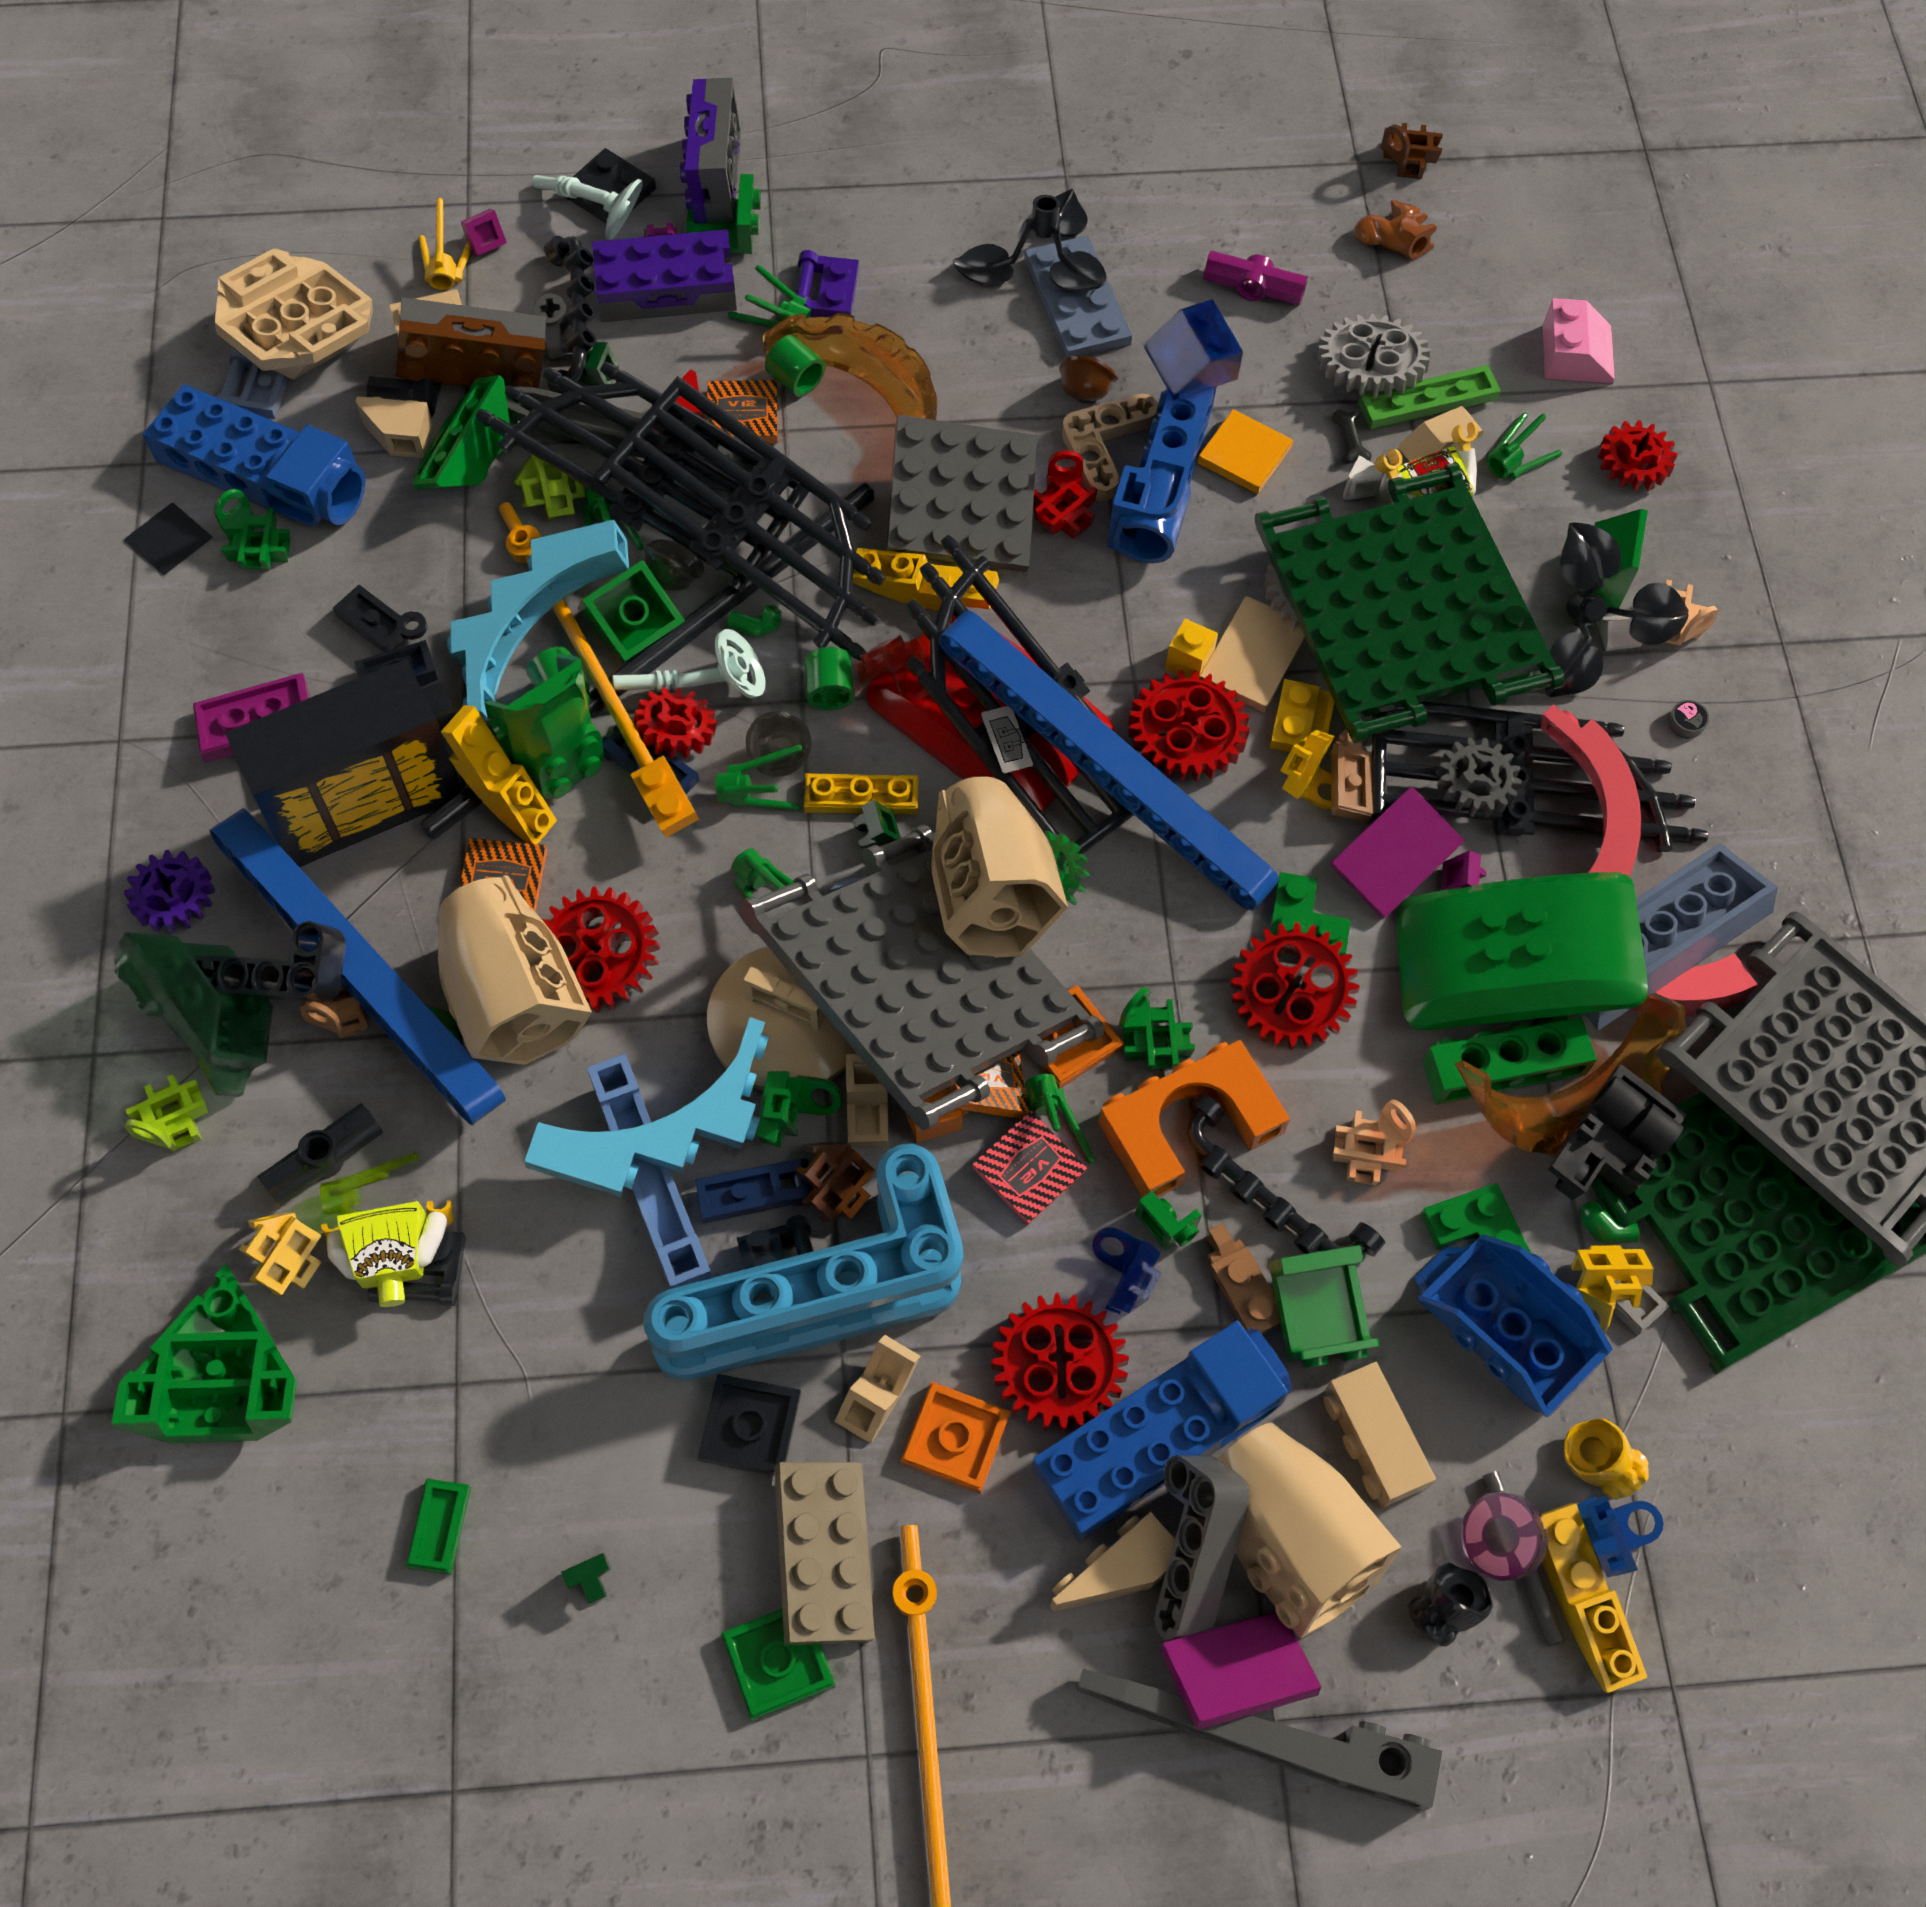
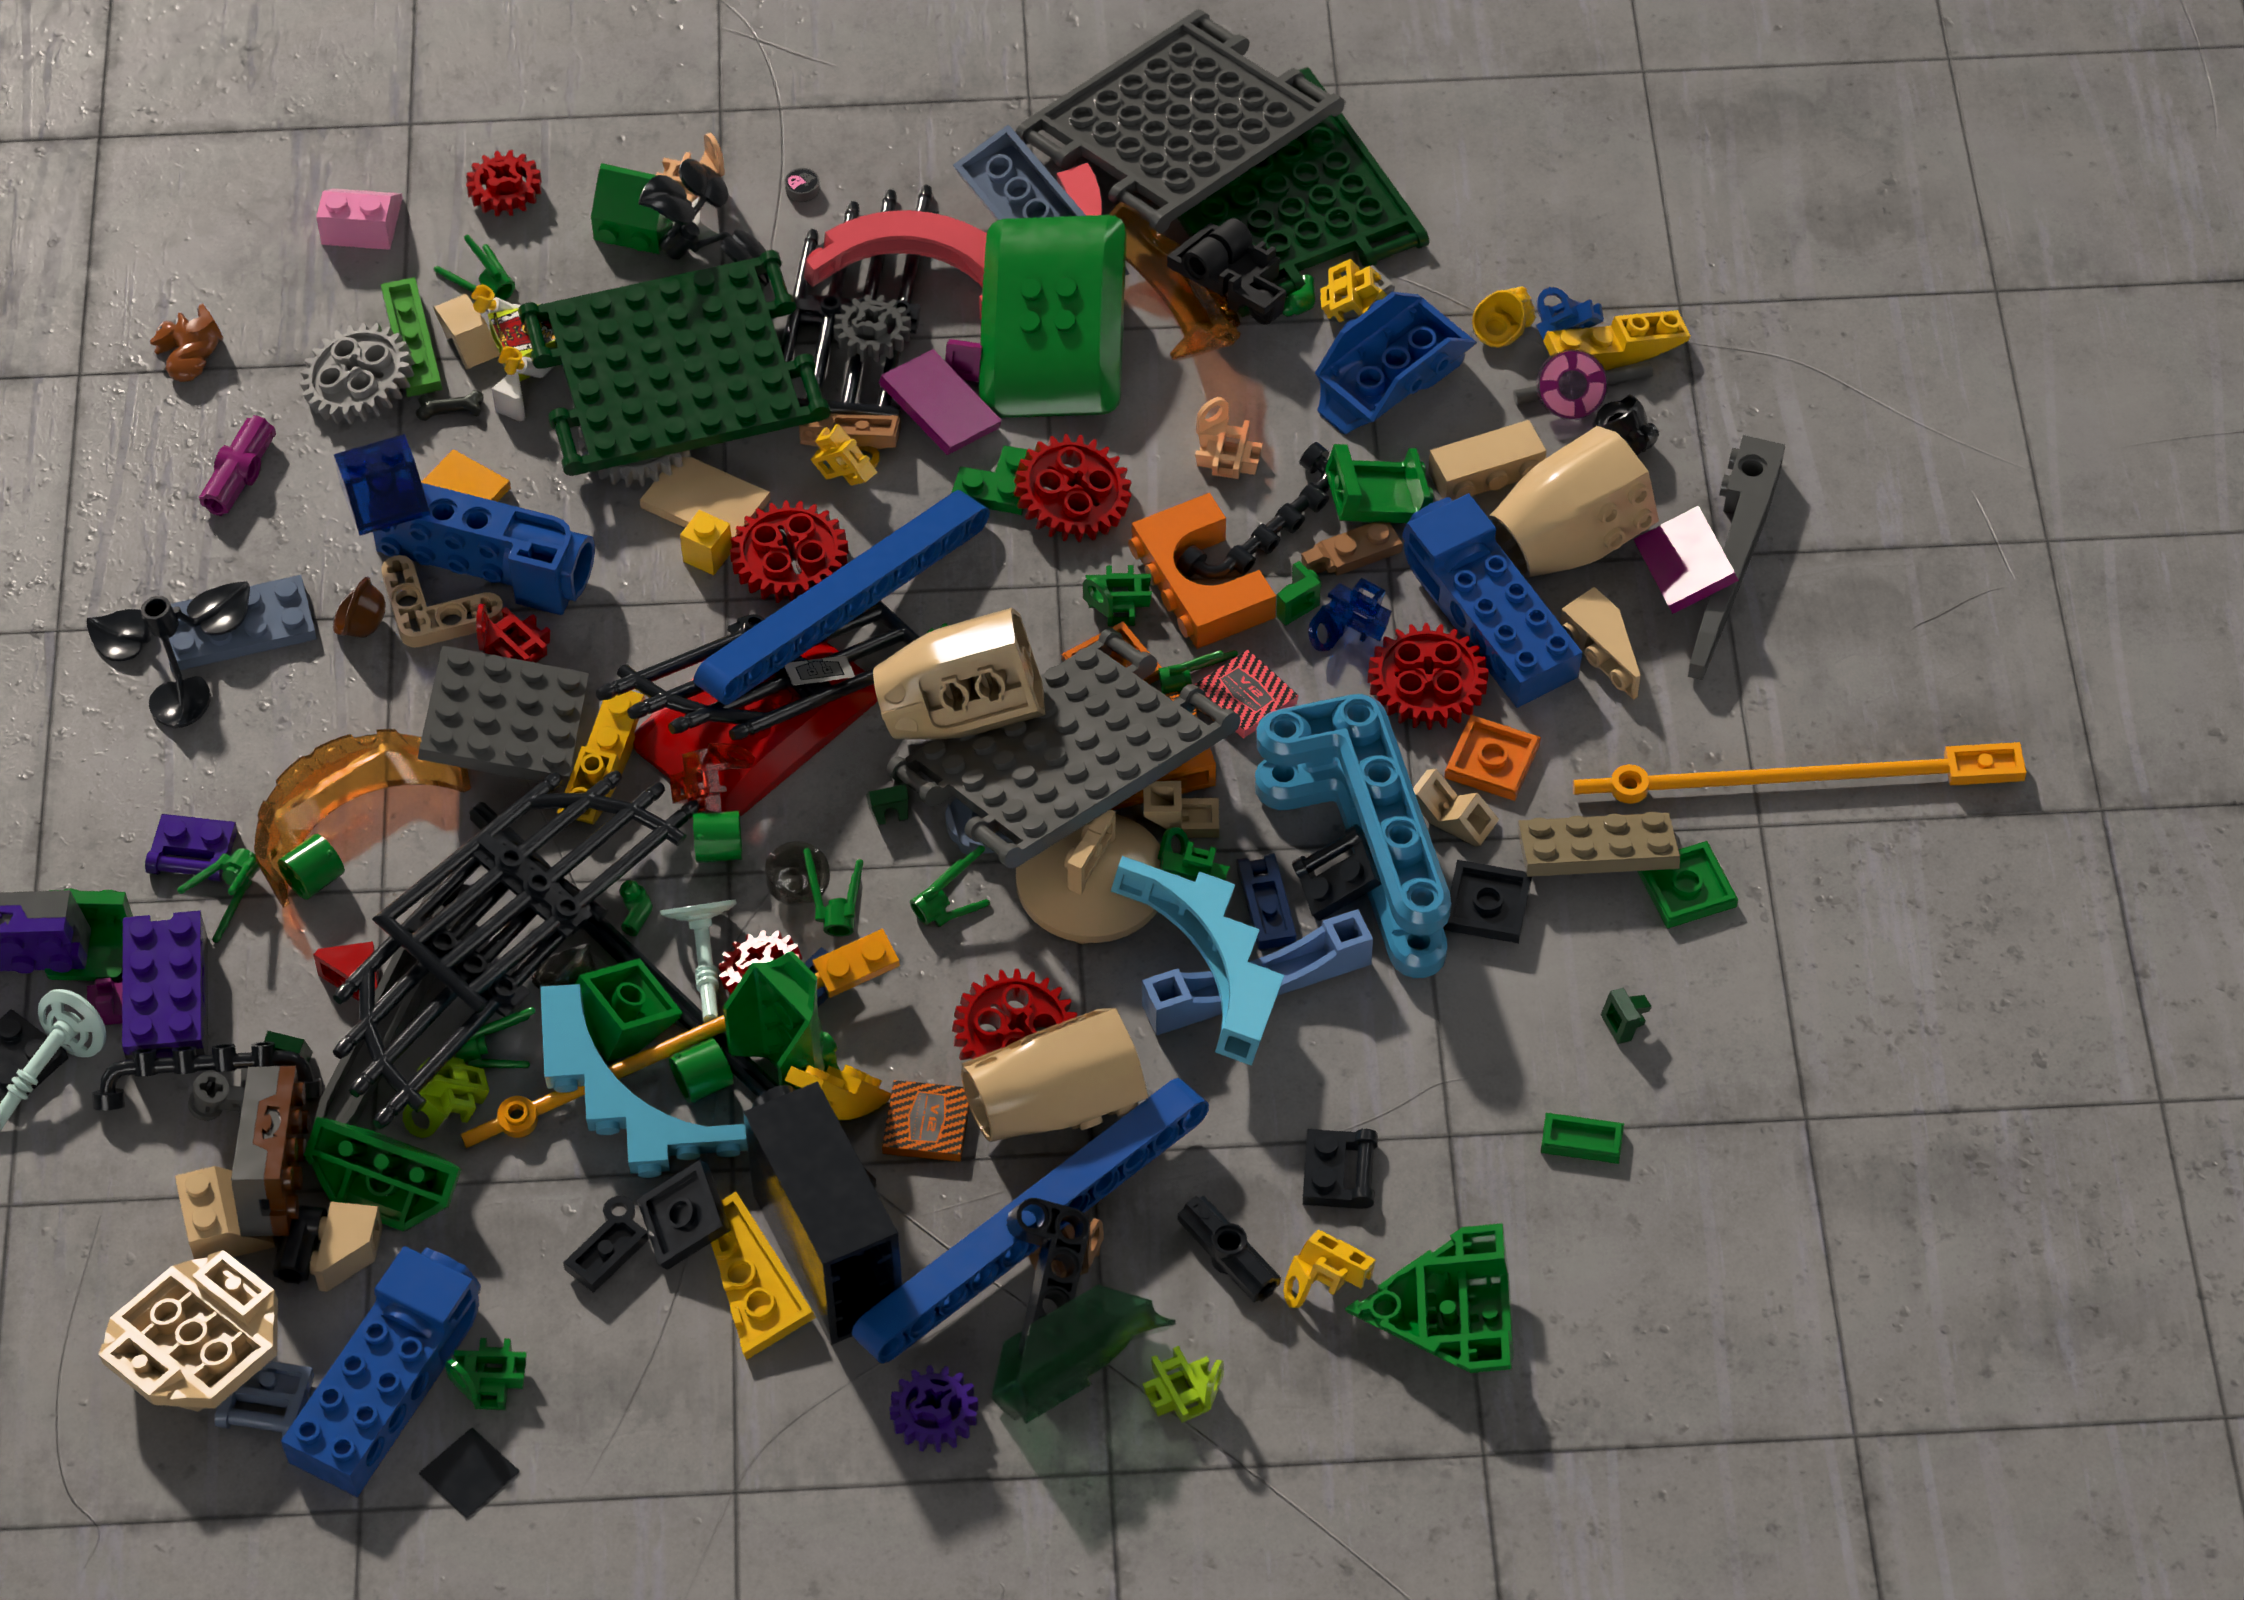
camera: 85 degrees left, 10 degrees down
(240, 707) = (725, 1351): magenta tile -> none
(345, 1193) = (1270, 1230): clear neon green plant -> none
(387, 1246) = (1330, 1173): torso -> none
(441, 269) = (119, 1214): yellow plant -> none
(483, 232) = (71, 1174): magenta tile -> none
(749, 402) = (348, 916): tile -> none
(840, 793) = (845, 819): yellow tile -> none
(842, 1179) = (1259, 827): reddish brown piece -> none
(1204, 1543) = (1596, 573): dark grey beam -> none
(1299, 713) = (780, 468): yellow plate -> none
(1397, 146) = (85, 325): reddish brown piece -> none
(1471, 1216) = (1291, 386): green plate -> none
(1565, 1037) = (1148, 345): green brick -> none

